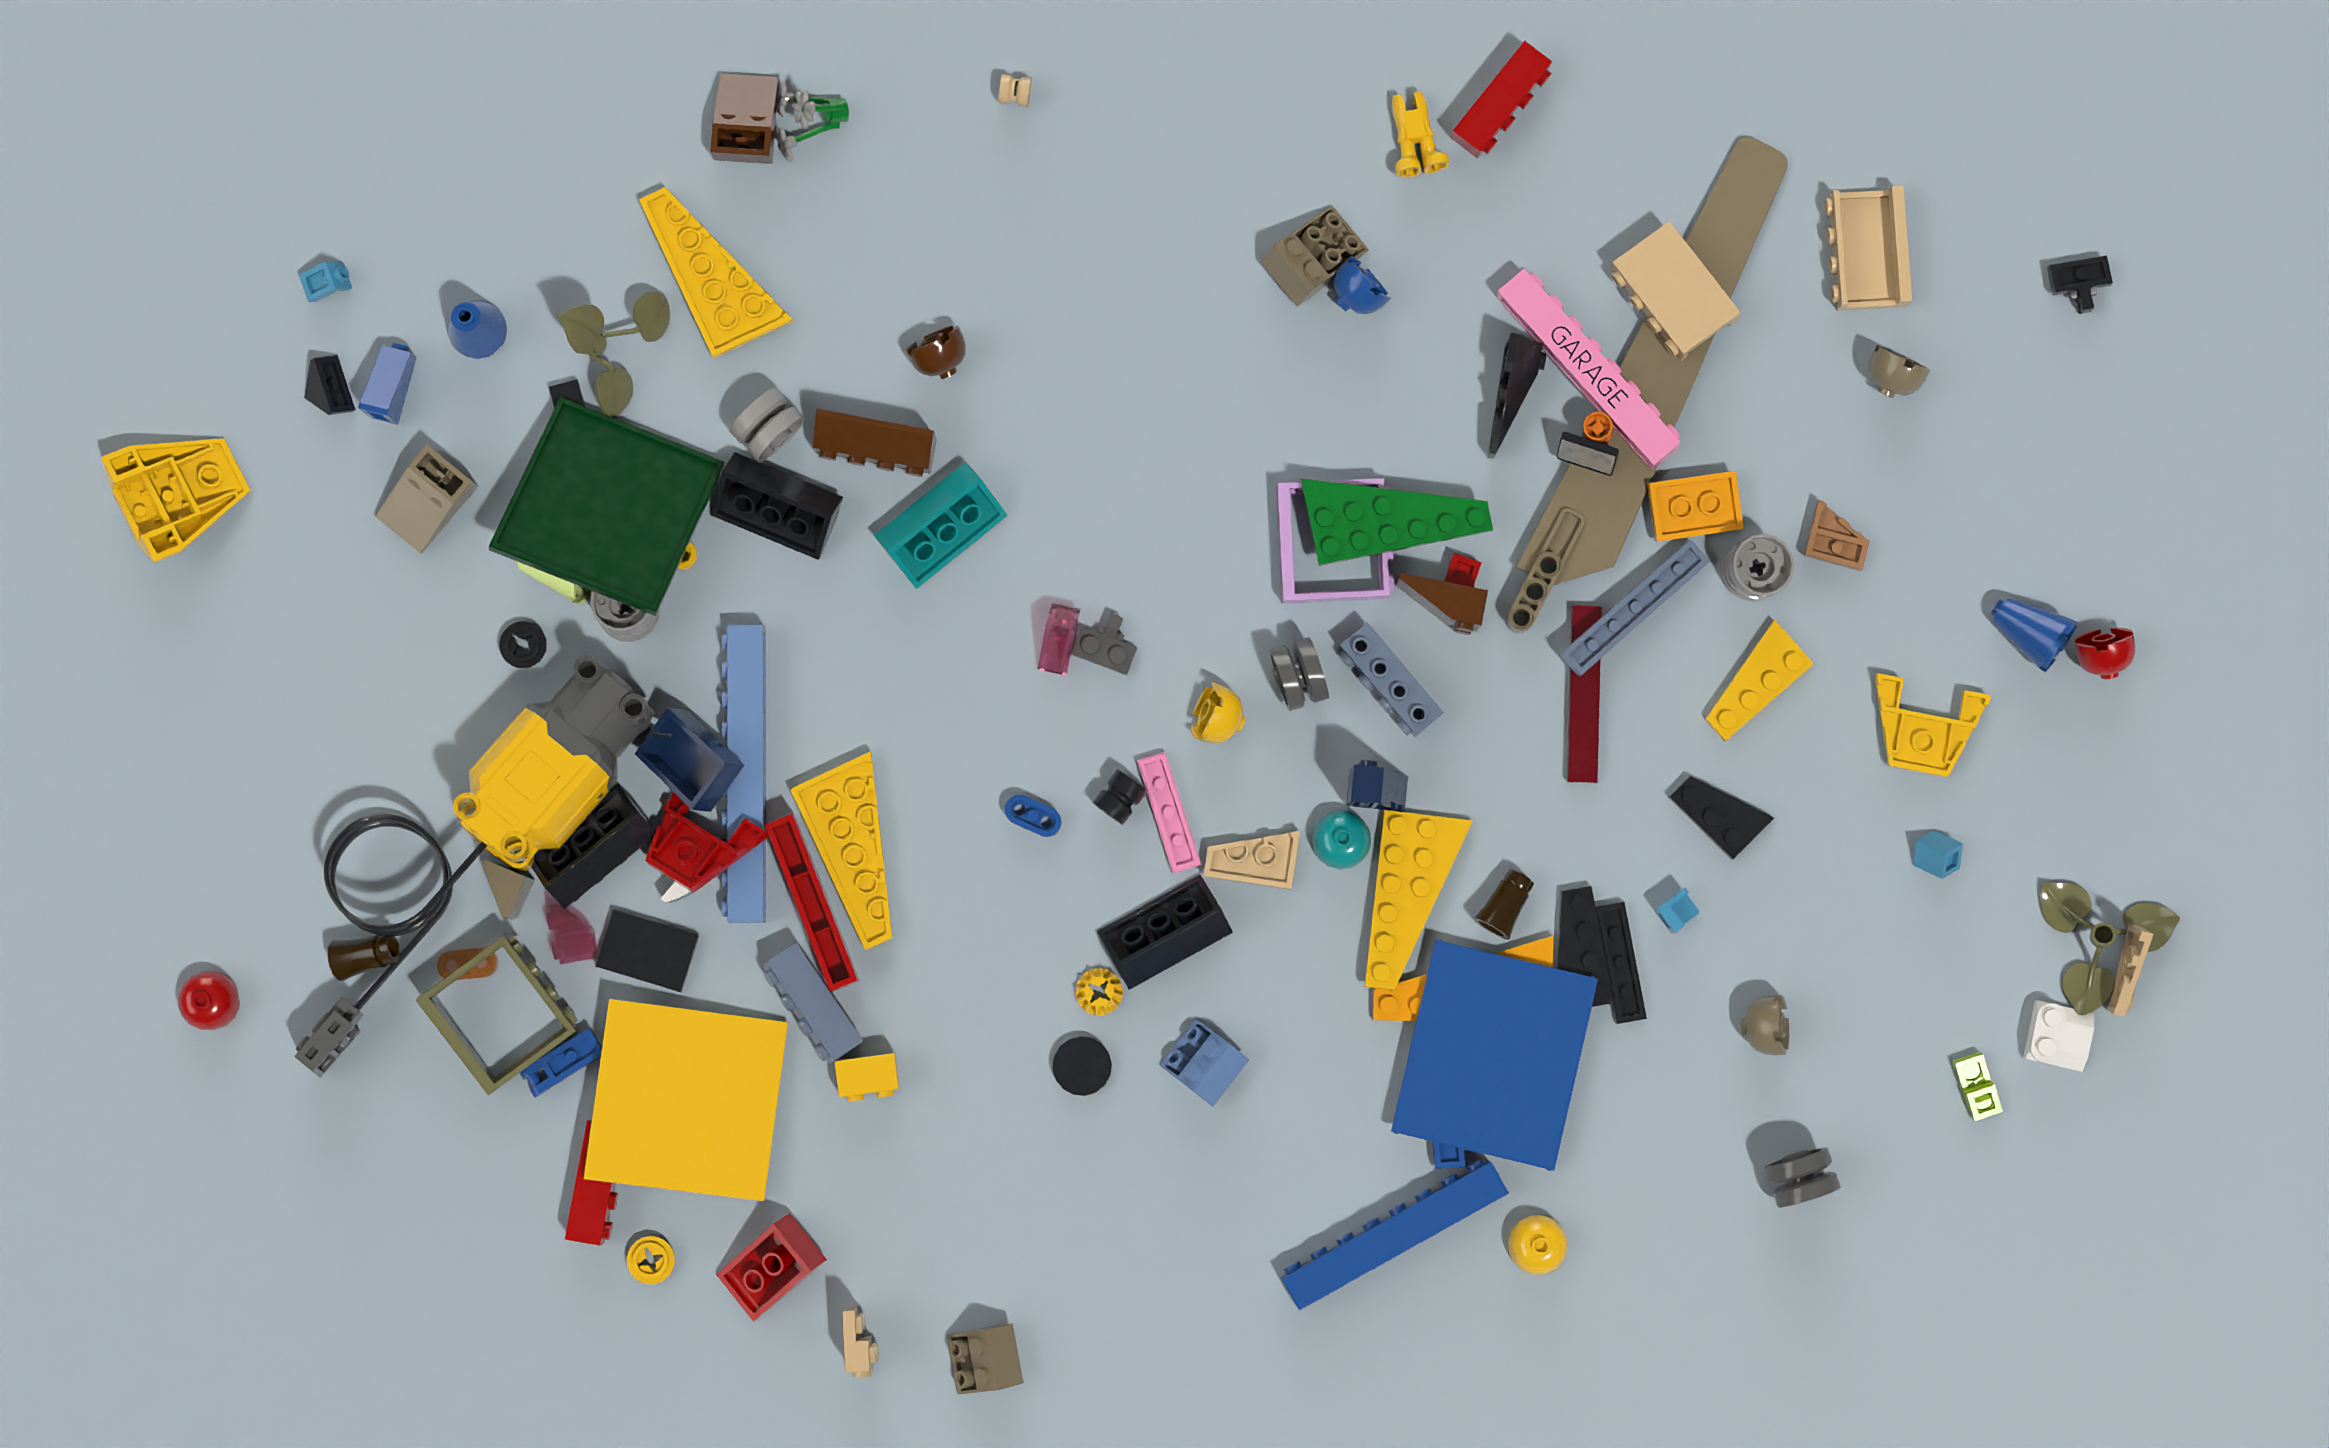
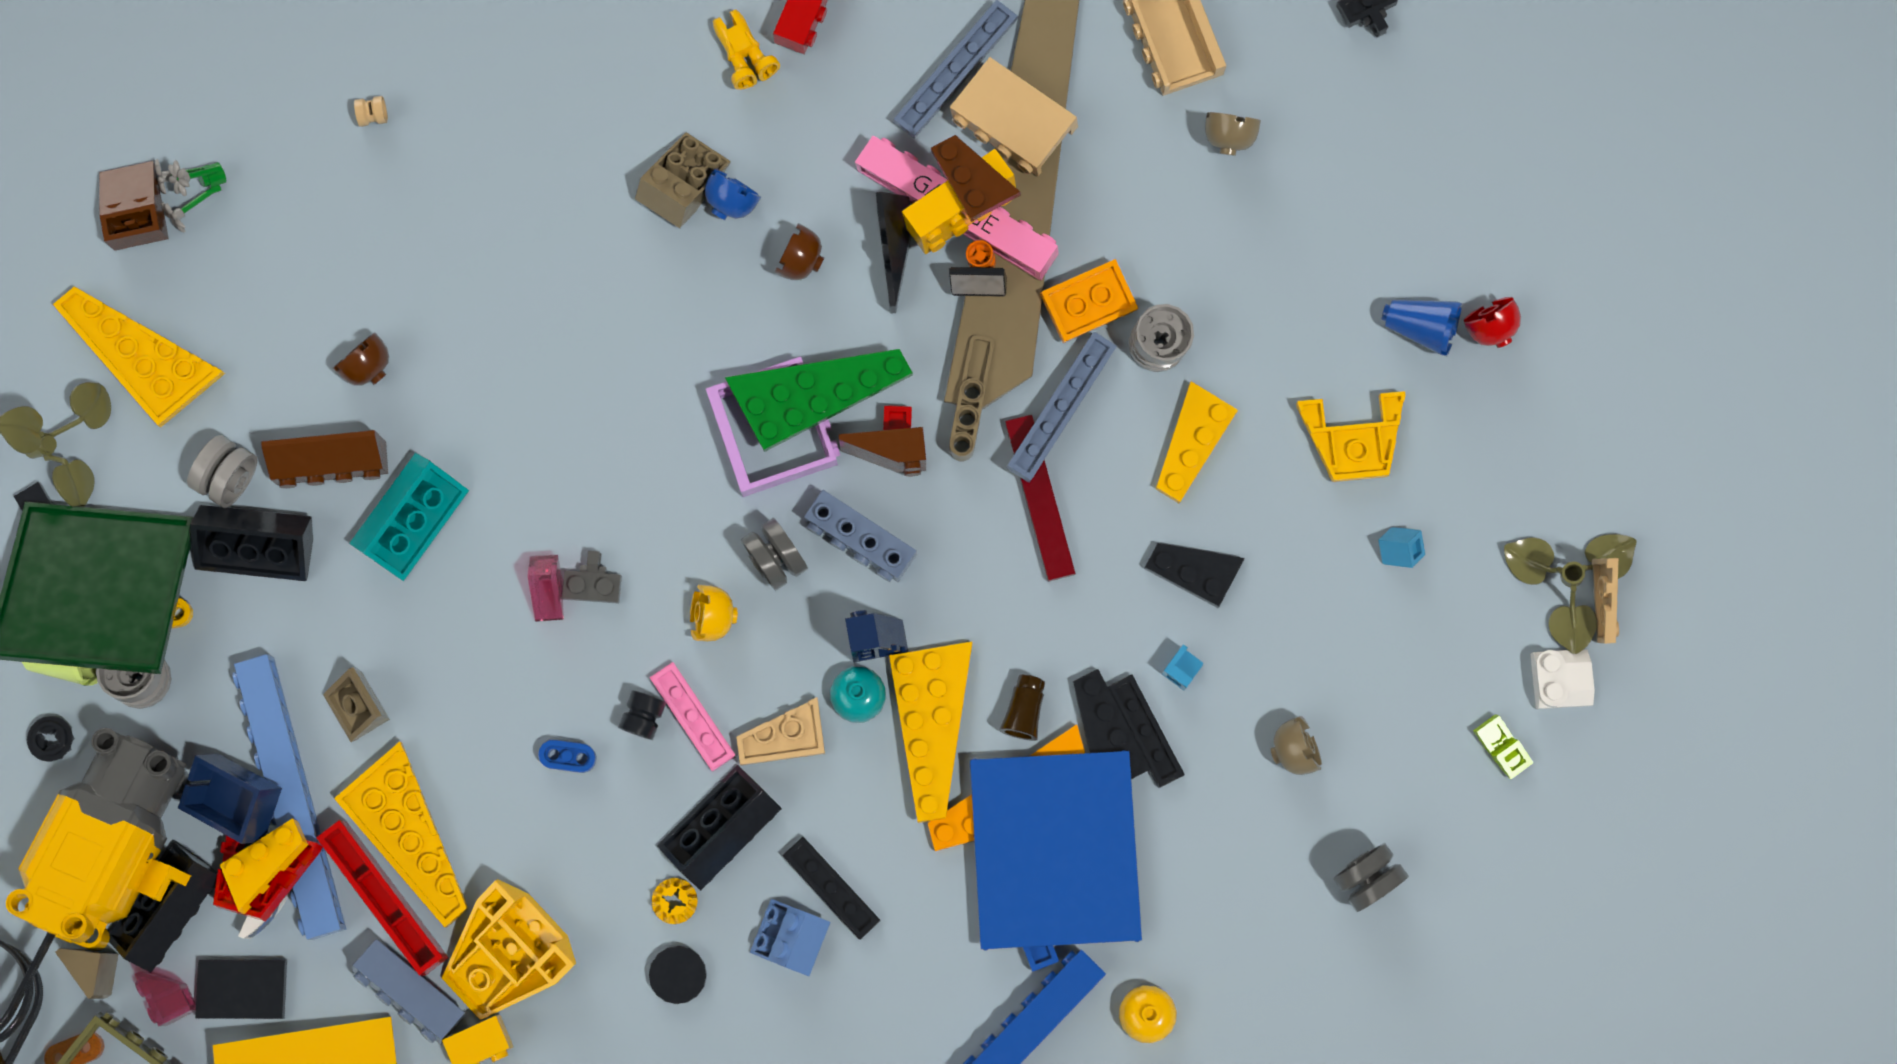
camera: 15 degrees left, 5 degrees down
(601, 819) = (158, 879): none -> yellow panel
(703, 833) = (259, 863): none -> yellow wing
(834, 701) = (355, 704): none -> dark tan slope
(920, 993) = (507, 951): none -> yellow wedge
(1259, 1025) = (831, 888): none -> black tile
(1413, 372) = (801, 255): none -> reddish brown cylinder
(1595, 370) = (940, 213): none -> yellow brick
(1614, 353) = (972, 178): none -> reddish brown wing
(1630, 220) = (955, 69): none -> sand blue plate
(1834, 540) = (1223, 296): medium nougat wing -> none

